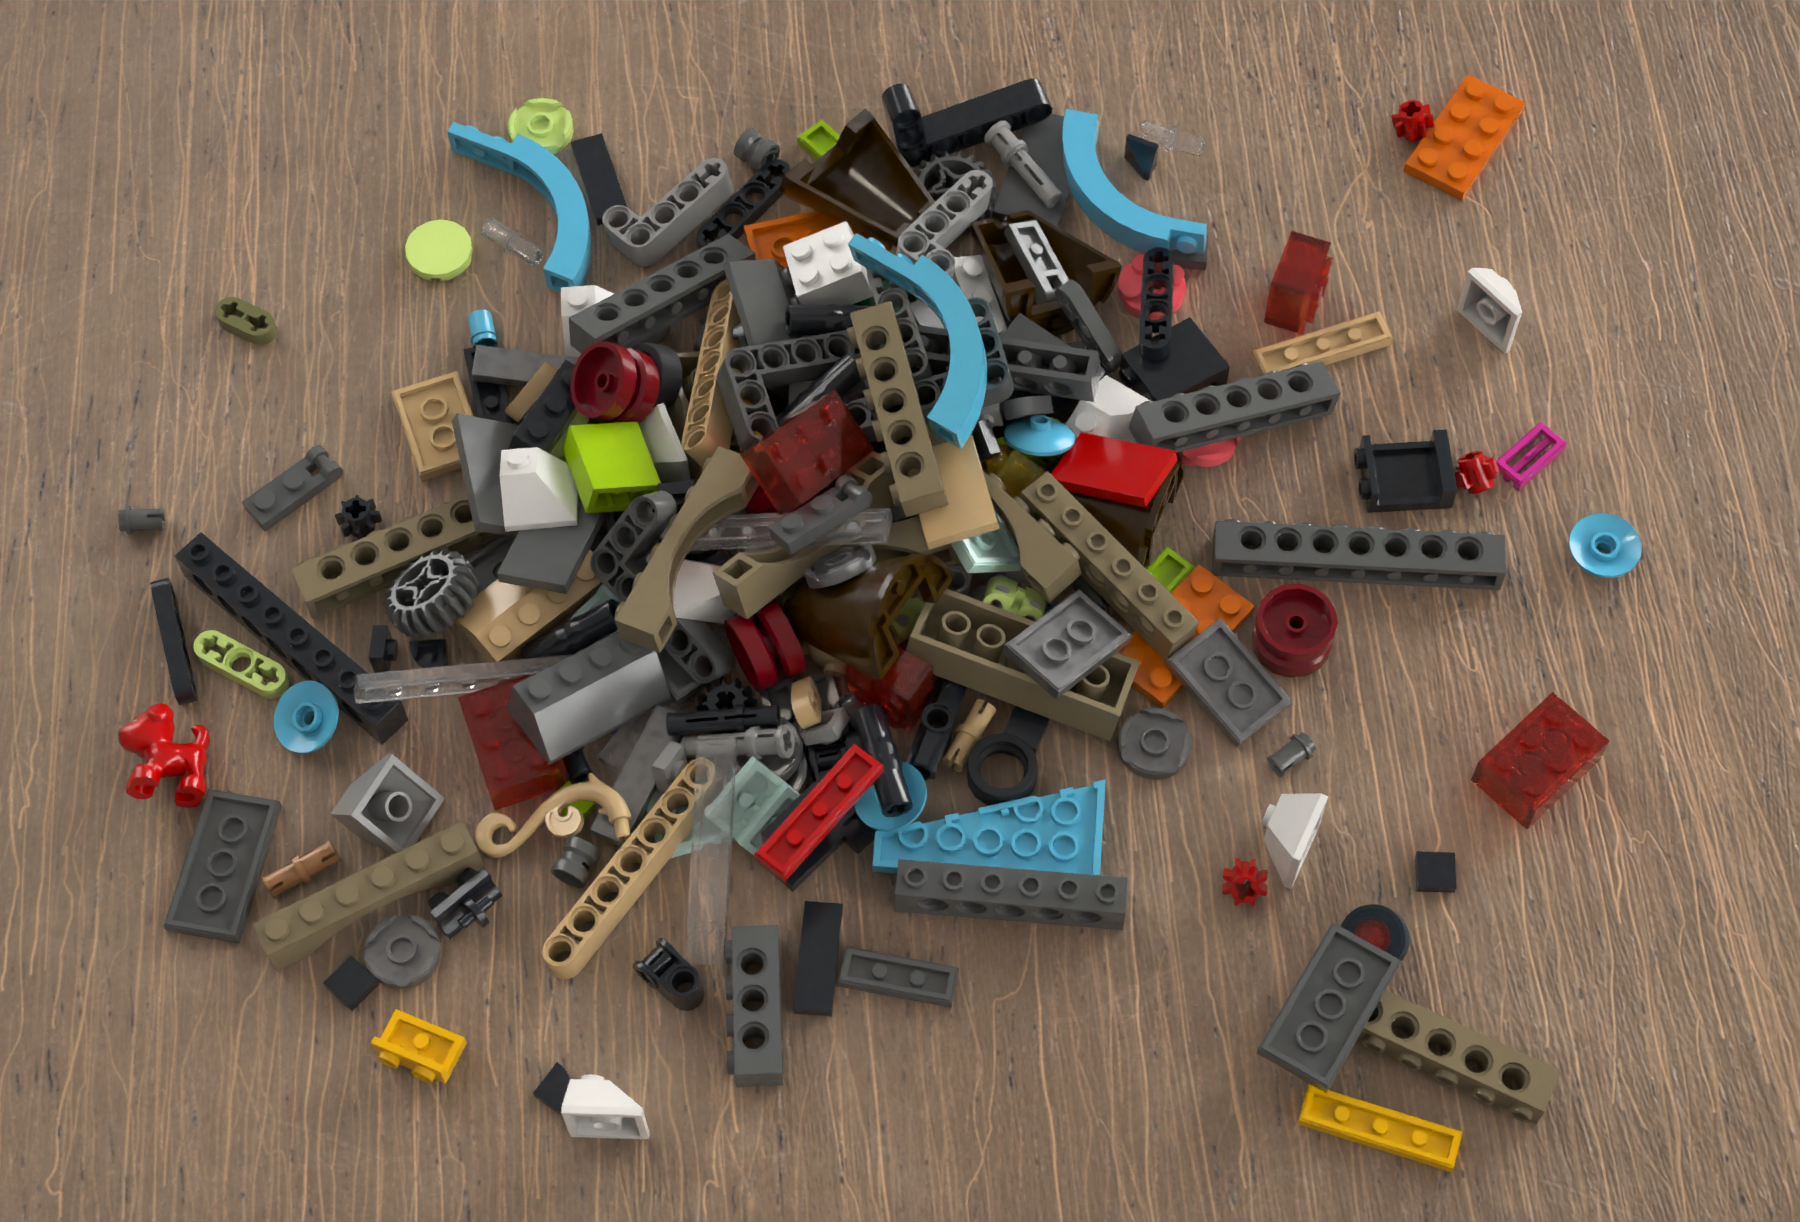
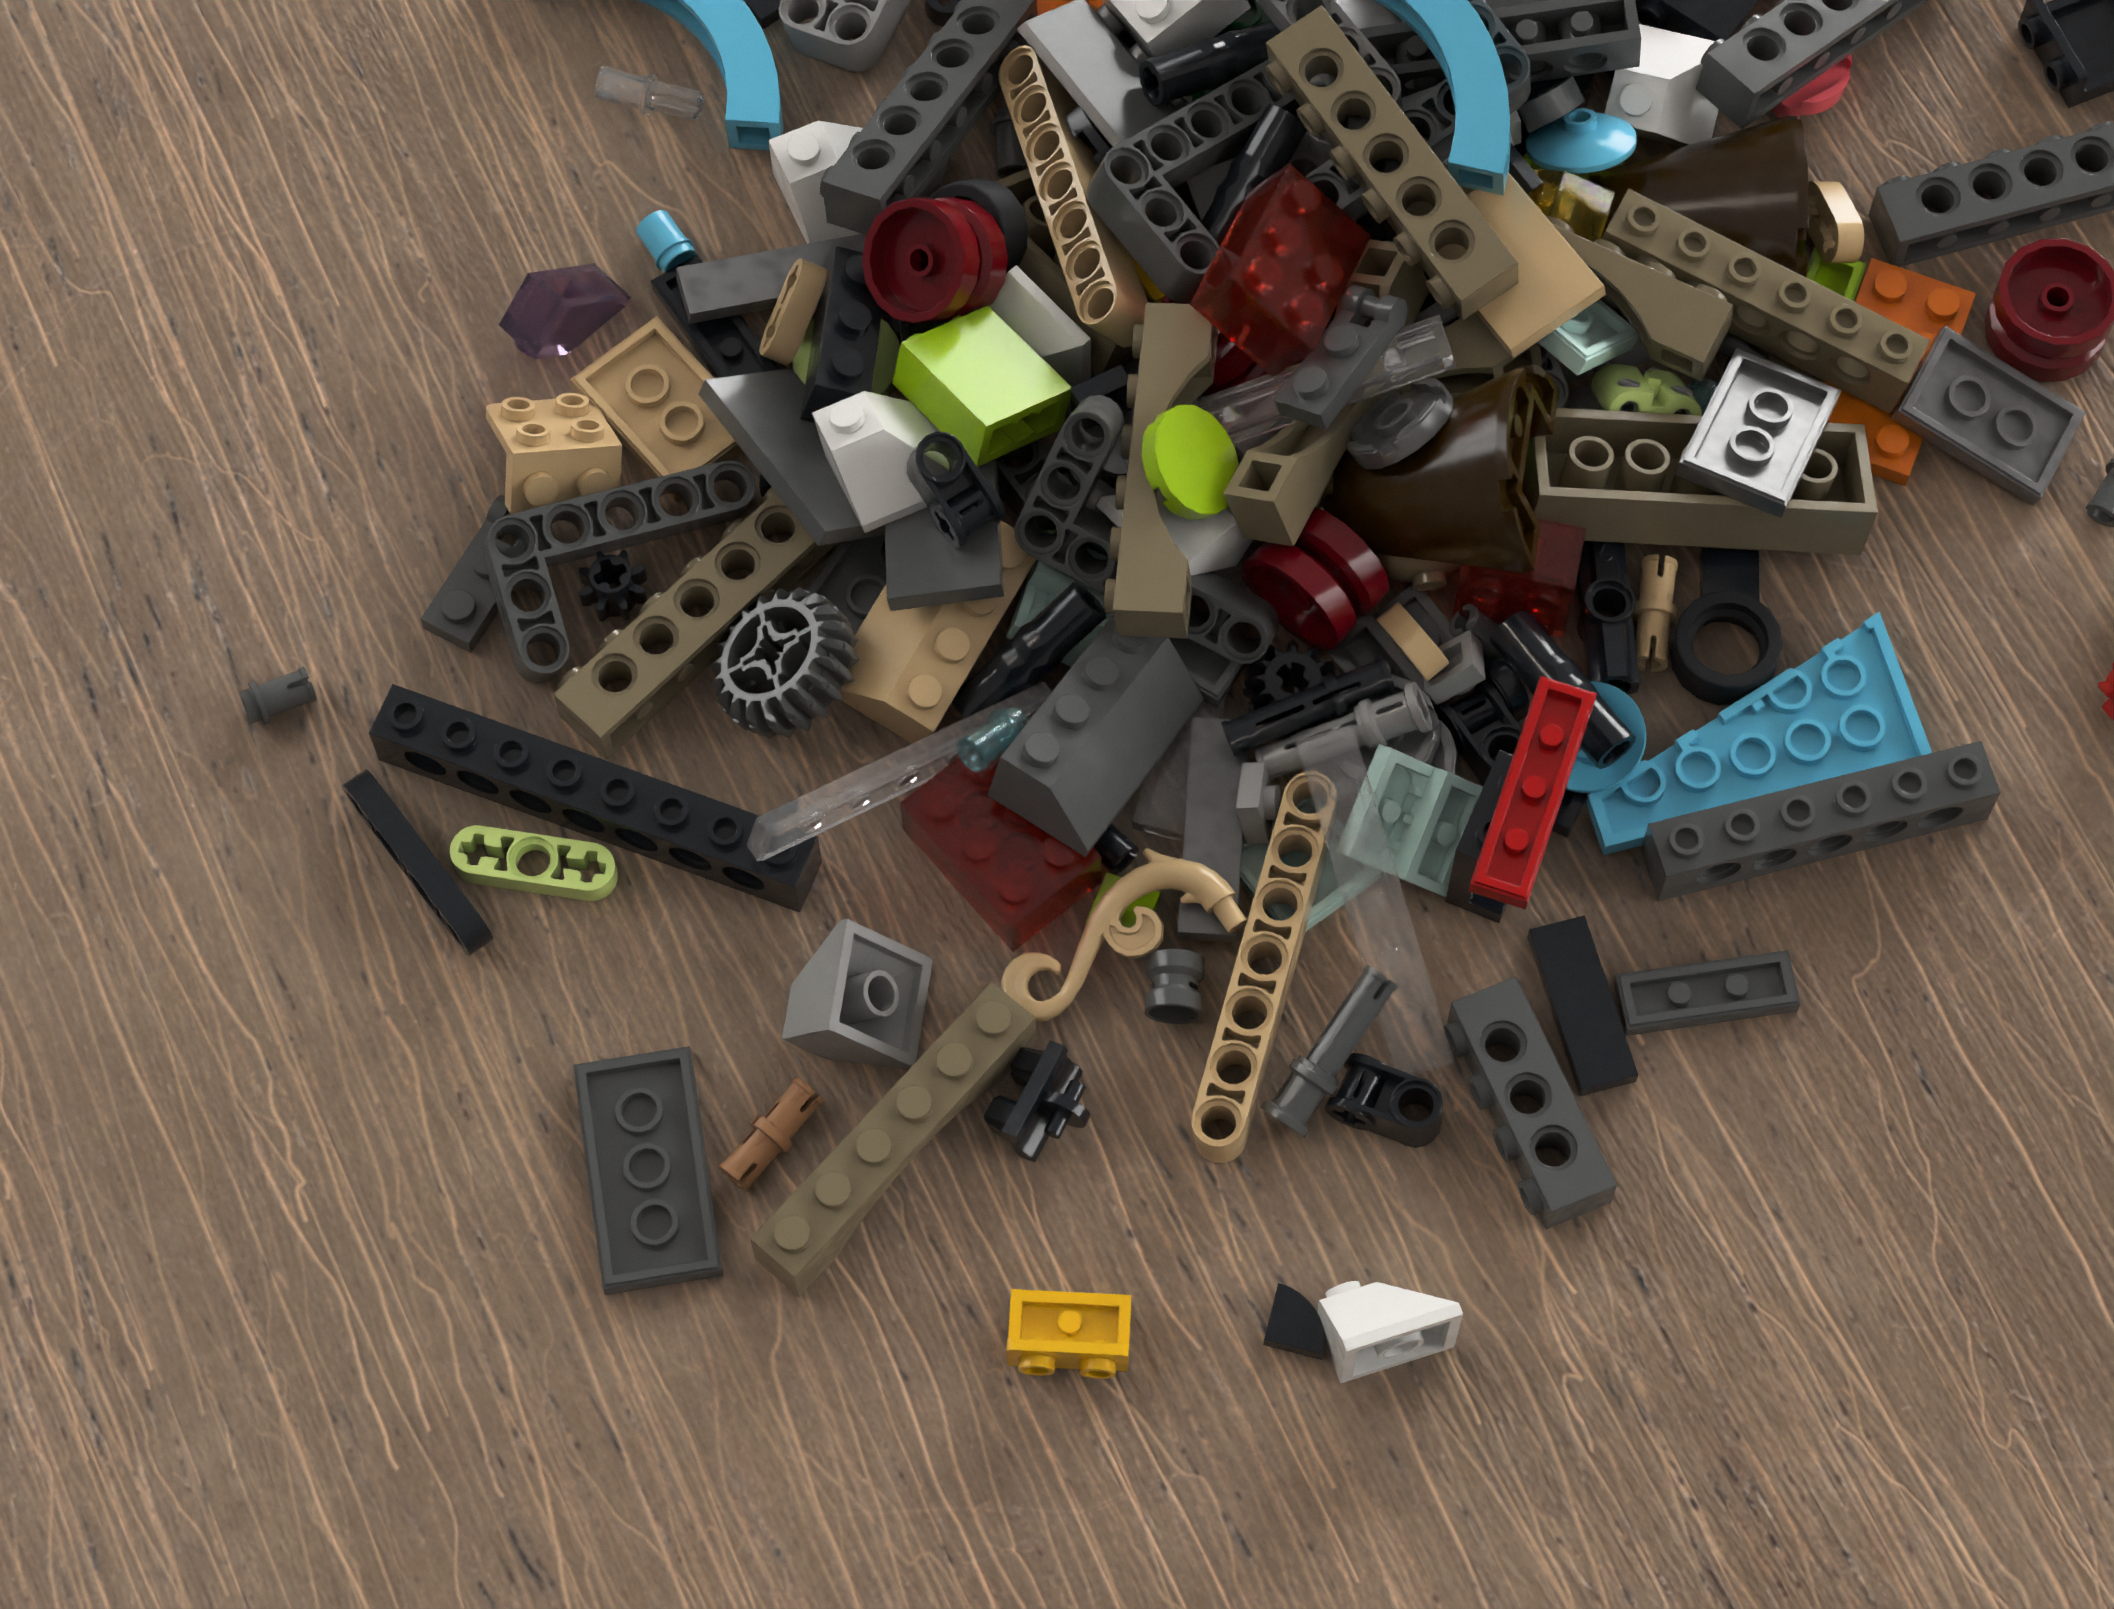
camera: 20 degrees left, 5 degrees up
(151, 738) = (458, 1014): red animal -> none
(248, 315) = (292, 343): olive beam -> none
(295, 713) = (651, 902): medium azure dish -> none
(351, 983) = (921, 1275): black tile -> none
(359, 430) = (554, 449): none -> tan bracket
(359, 469) = (596, 535): none -> dark grey beam
(382, 649) = (744, 770): black plate -> none
(402, 951) = (974, 1203): flat silver tile -> none
(403, 349) = (561, 309): none -> clear purple slope
(430, 653) = (813, 756): black tile -> none
(439, 250) = (540, 141): yellowish green tile -> none
(513, 676) = (991, 739): none -> clear light blue pin
(560, 525) = (954, 492): none -> black piece
(633, 942) = (1314, 1075): none -> dark grey pin
(701, 546) = (1189, 461): none -> lime tile
(1114, 469) = (1717, 155): red tile -> none
(1154, 743) = (1920, 538): flat silver tile -> none
(1181, 534) = (1834, 223): none -> tan beam

